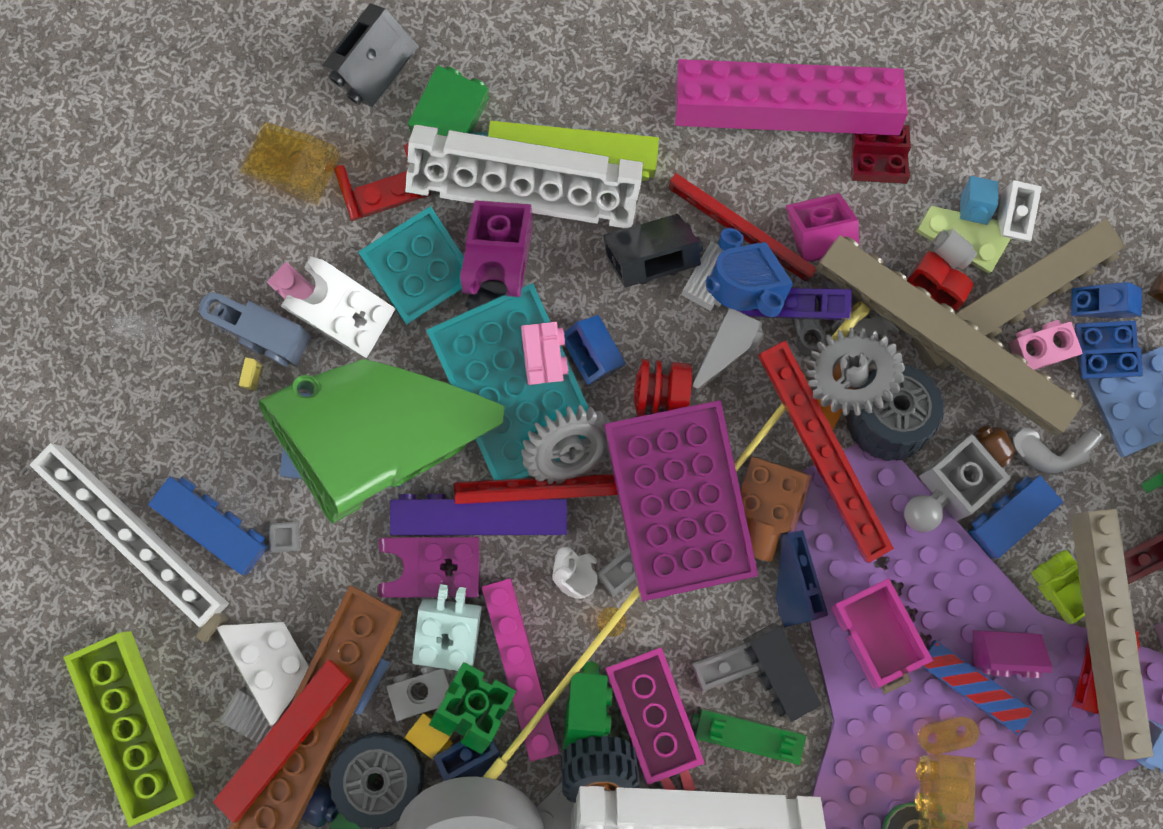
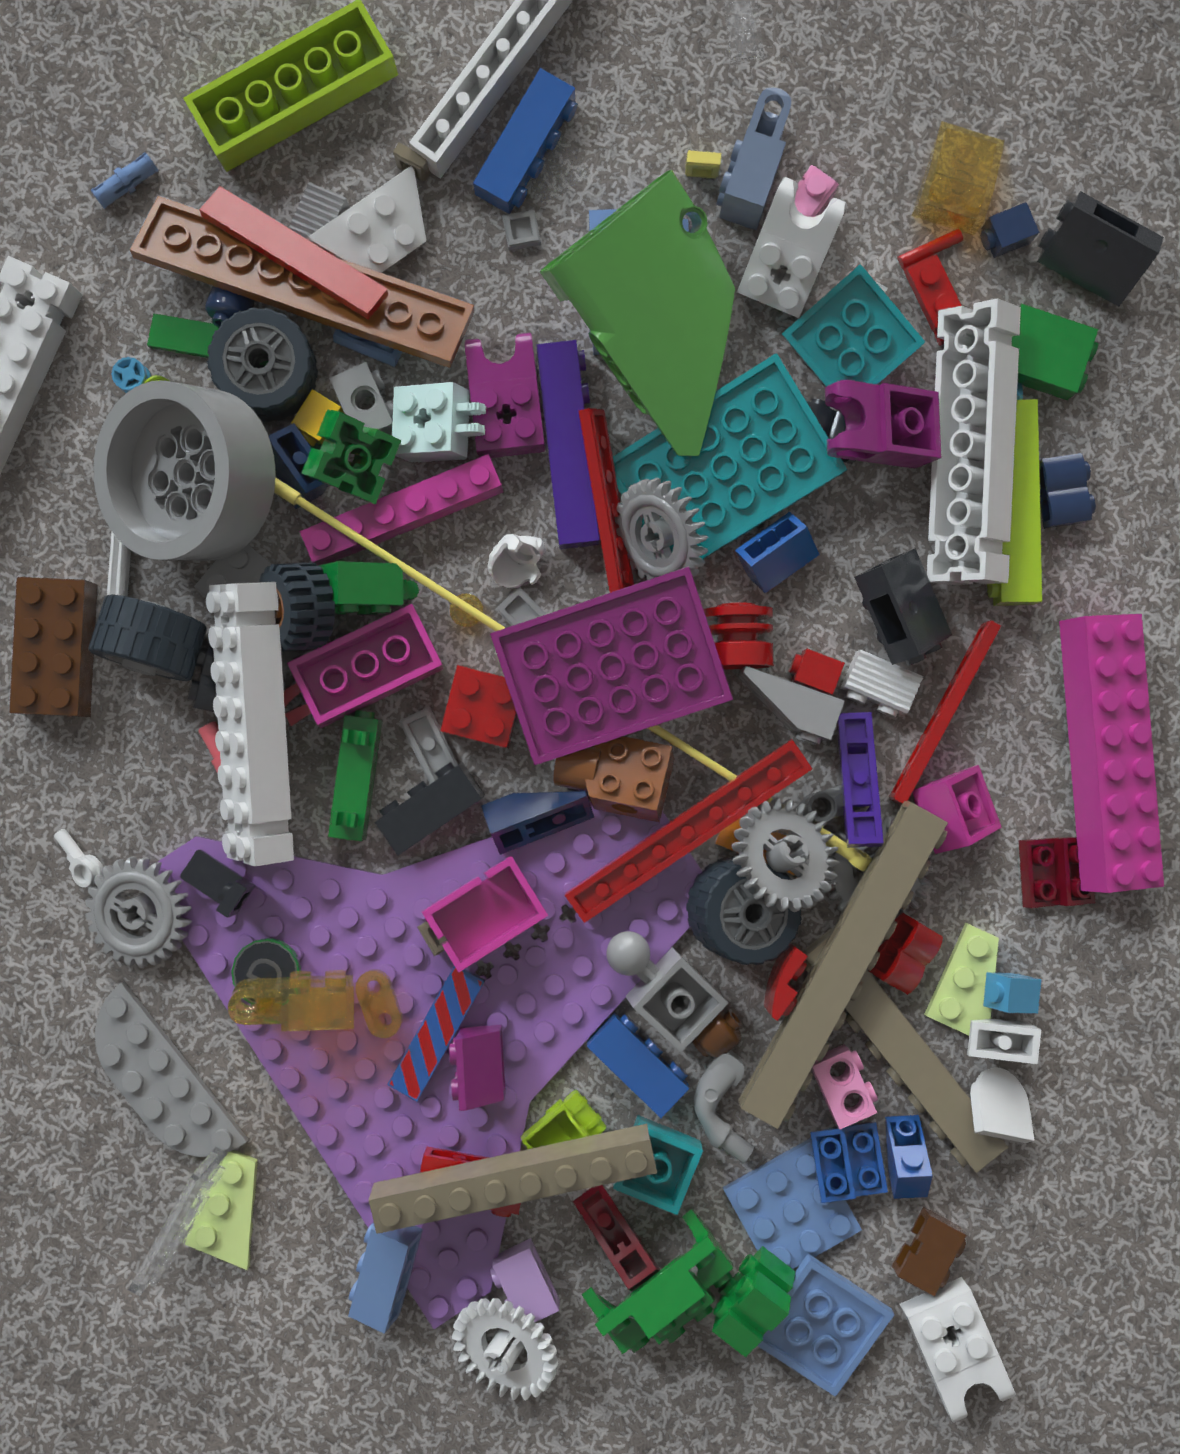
camera: 90 degrees right, 5 degrees up
(342, 126) = (1009, 230): none -> dark blue brick
(543, 353) = (765, 490): bright pink brick -> none
(567, 108) = (1065, 491): none -> dark blue brick
(696, 329) = (816, 671): none -> red brick
(700, 618) = (480, 707): none -> red brick
(748, 276) = (884, 719): blue piece -> none
(954, 248) = (948, 966): light grey brick -> none
(967, 390) = (779, 993): none -> red slope
(1071, 220) = (1001, 1106): none -> white tile
(1099, 492) = (675, 1162): none -> teal brick

